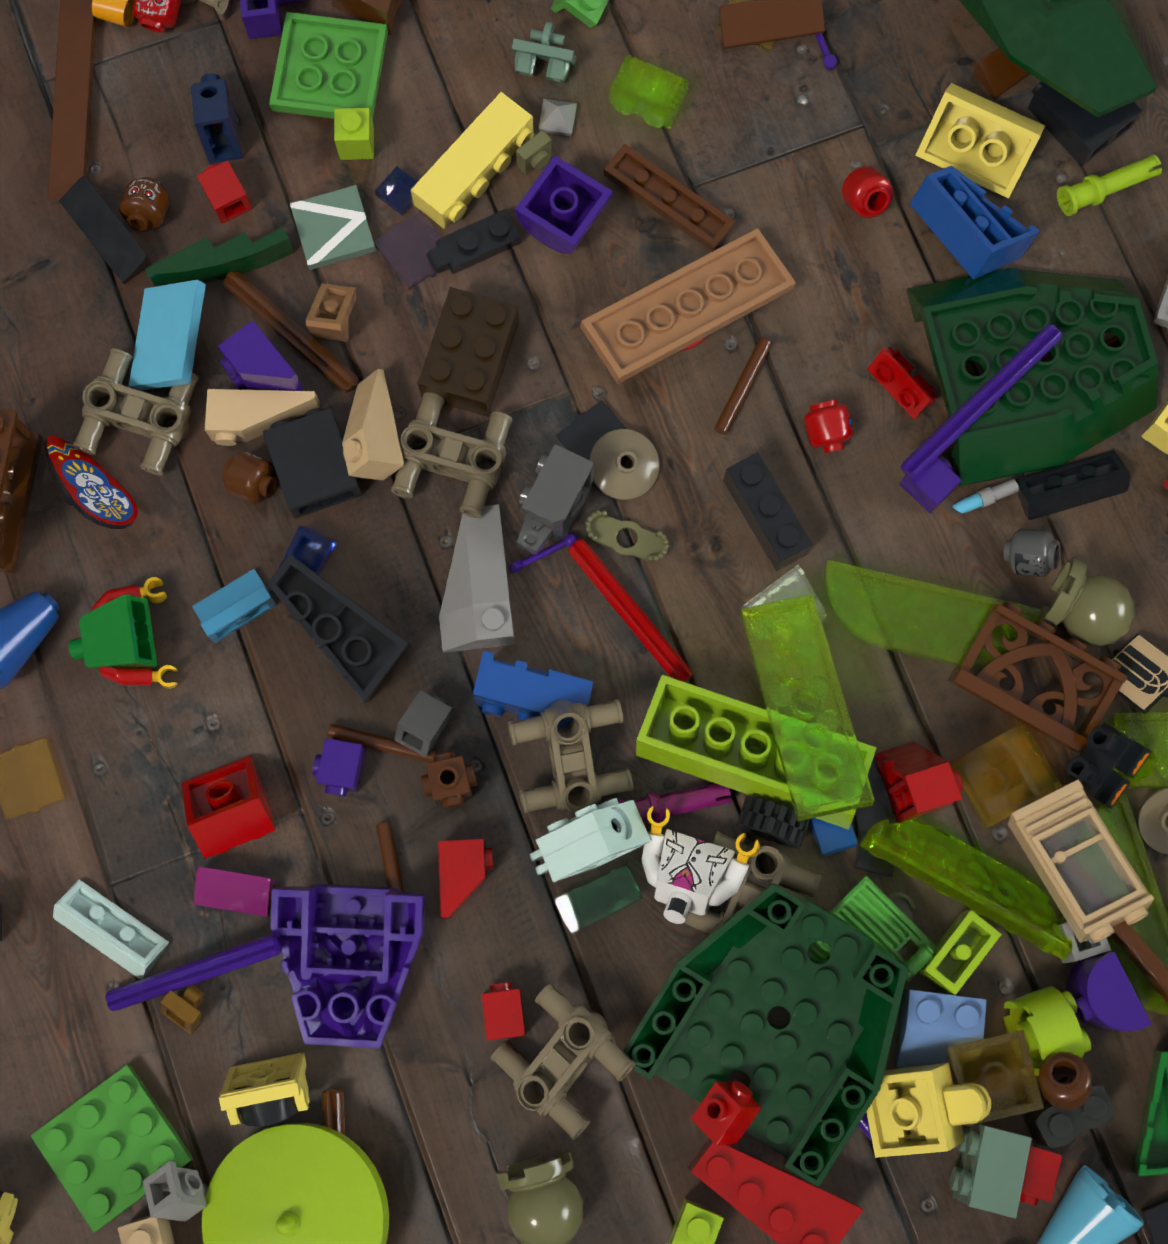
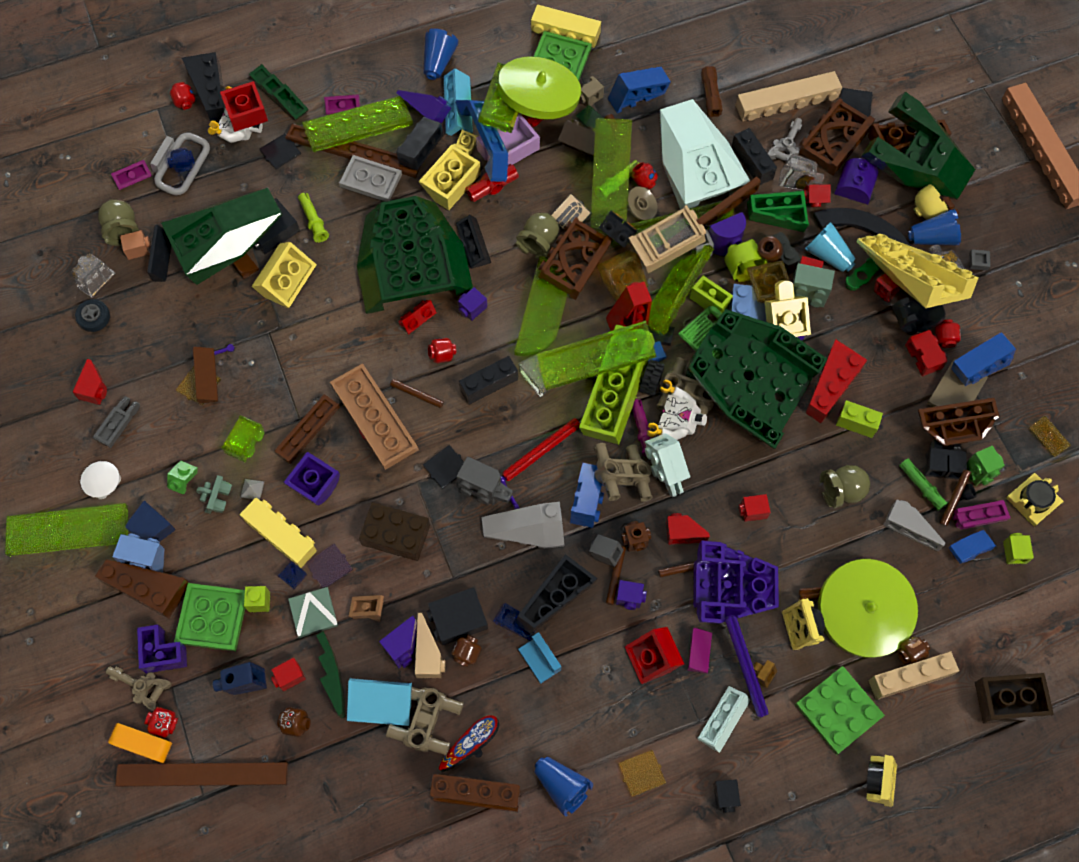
camera: 90 degrees left, 10 degrees down
(104, 230) = (308, 745): black slope -> none
(120, 636) = (561, 718): green torso -> none
(185, 1190) = (859, 665): light grey brick -> none
(290, 331) = (376, 634): reddish brown axle -> none
(371, 433) = (439, 582): tan slope -> none
(452, 455) = (454, 540): dark tan piece -> none
(474, 243) = (328, 531): black hinge -> none
(534, 153) = (277, 498): olive plate -> none
(562, 1061) = (777, 476): dark tan piece -> none
(598, 898) = (695, 463): clear green slope -> none
(604, 531) = (504, 440): olive piece -> none
(612, 477) = (453, 457): dark tan dish -> none
(726, 1112) = (796, 398): red brick -> none
(867, 192) = (311, 328): red head -> none
(969, 224) = (333, 280): blue wedge -> none
(981, 401) = (435, 273): dark purple axle -> none
(986, 496) = (479, 279): light grey piece -> none
(1032, 552) = (510, 259): dark grey head -> none

